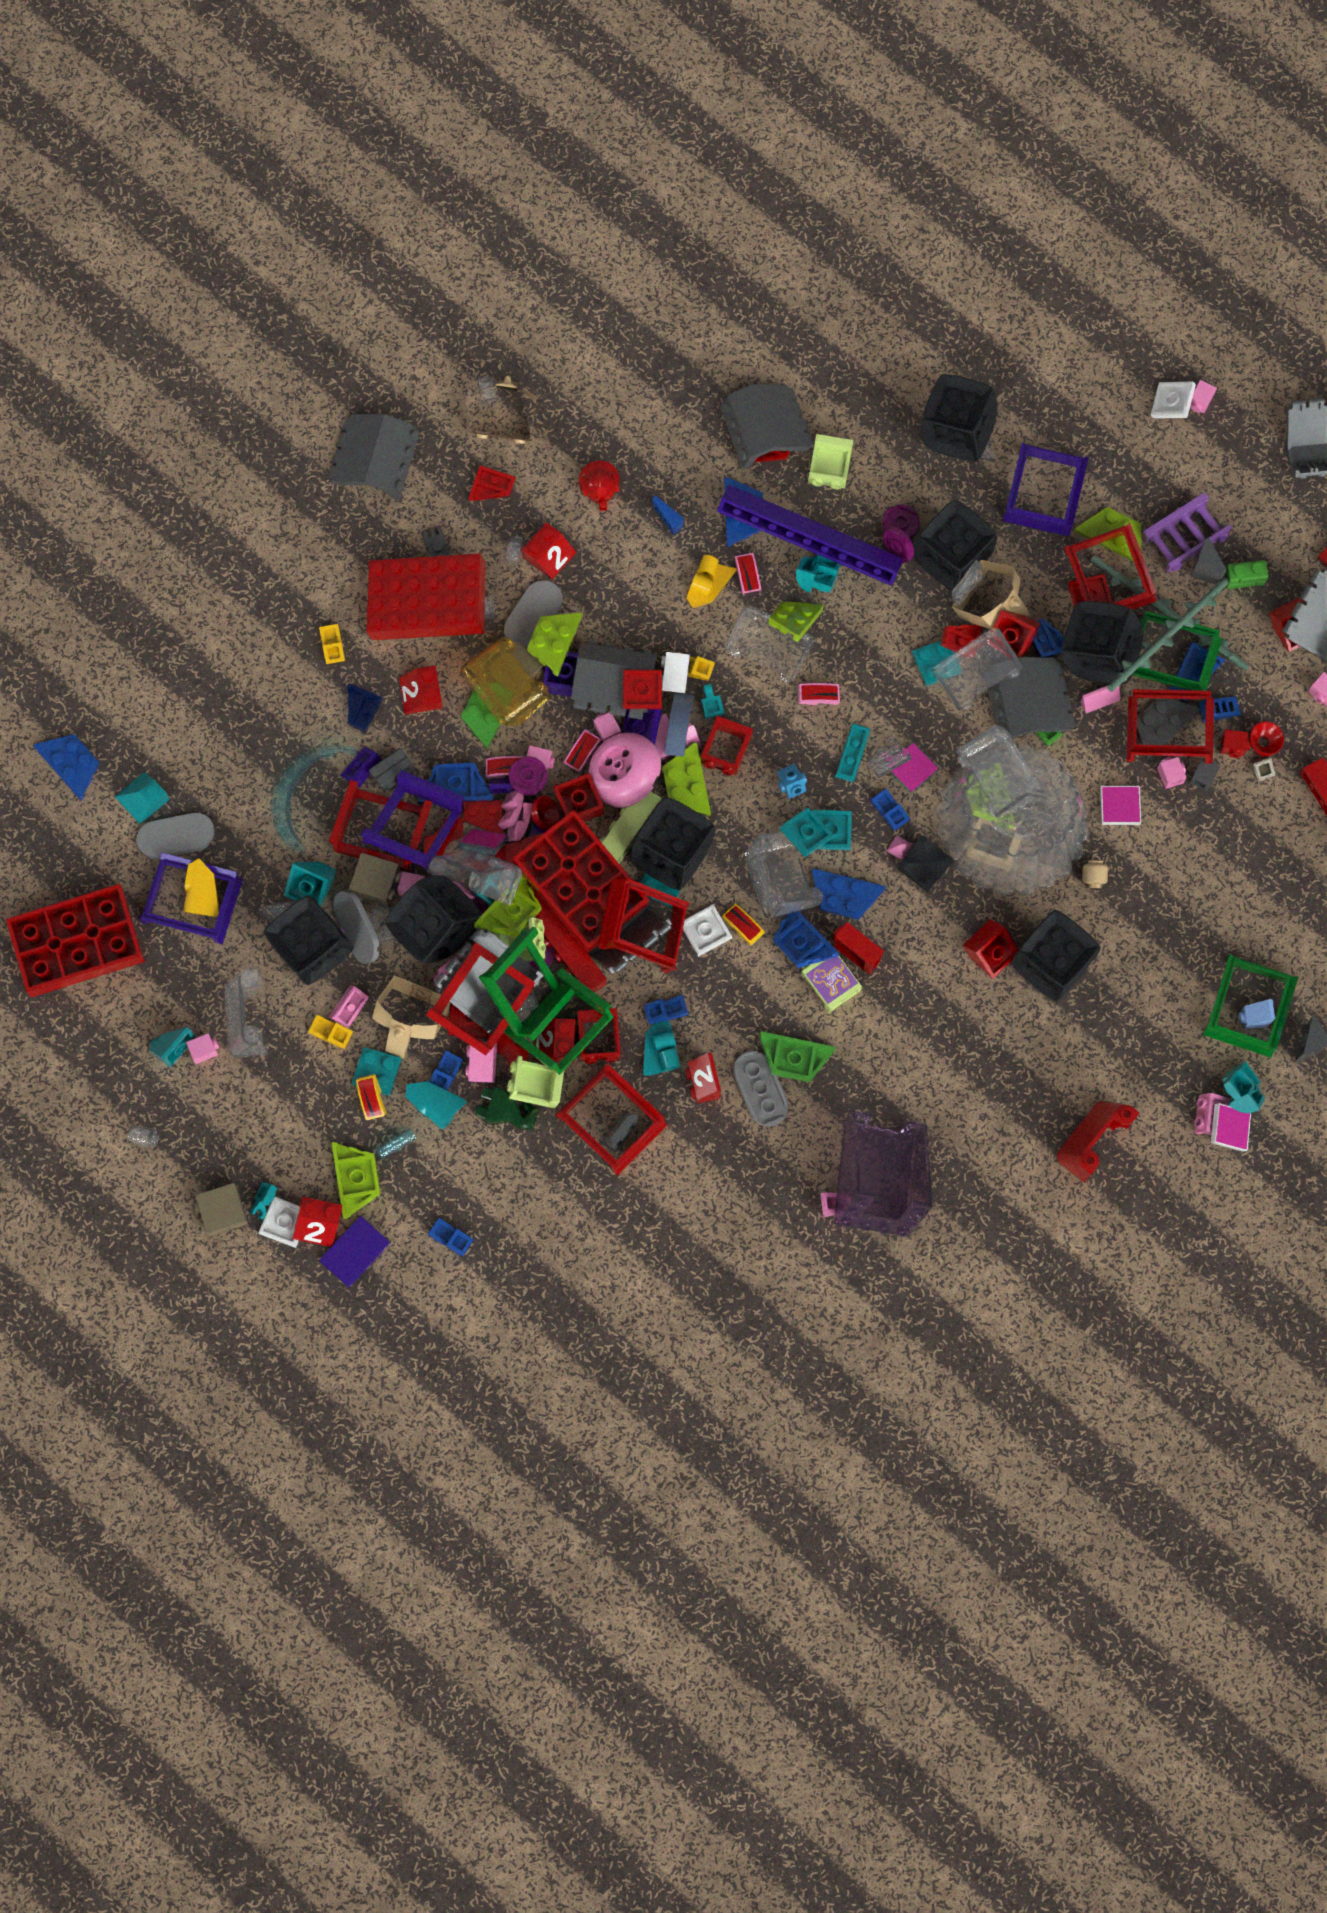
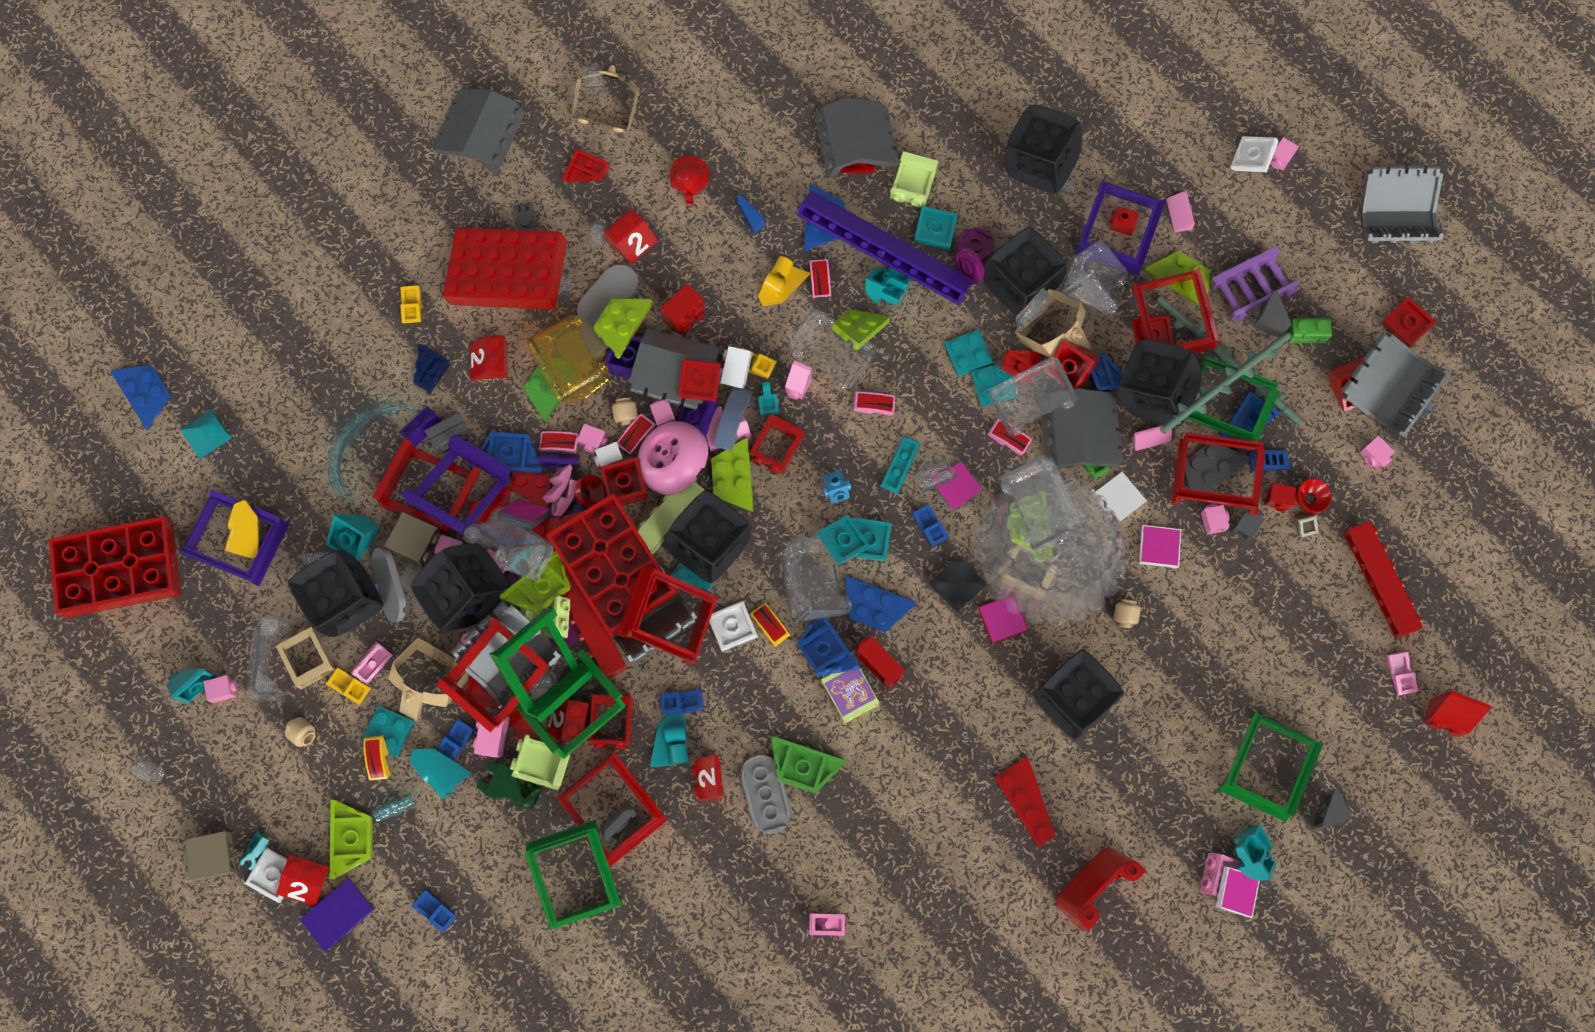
camera: 10 degrees right, 0 degrees up
(175, 835) = (231, 474): light grey tile -> none
(290, 1081) = (300, 732): none -> tan head
(295, 1023) = (314, 674): none -> tan window
(528, 775) = (577, 453): magenta tile -> none
(558, 774) = (608, 455): none -> white brick
(568, 729) = (624, 411): none -> tan head
(568, 1149) = (586, 829): none -> green piece
(614, 620) = (683, 310): none -> red brick
(740, 679) = (798, 380): none -> bright pink slope
(858, 509) = (935, 227): none -> teal plate
(883, 1177) = (876, 903): clear purple windscreen -> none
(899, 847) = (935, 564): bright pink slope -> none
(907, 633) = (968, 353): none -> teal plate
(965, 718) = (1016, 443): none -> slope
(971, 897) = (1000, 622): none -> dark pink tile
(991, 948) = (1014, 677): red slope -> none
(1015, 1062) = (1023, 794): none -> red wing
(1024, 544) = (1094, 276): none -> clear windscreen
(1048, 482) = (1123, 220): none -> red brick
(1078, 759) = (1121, 496): none -> white tile
(1104, 467) = (1180, 212): none -> bright pink slope
(1257, 1015) = (1277, 777): light blue slope -> none

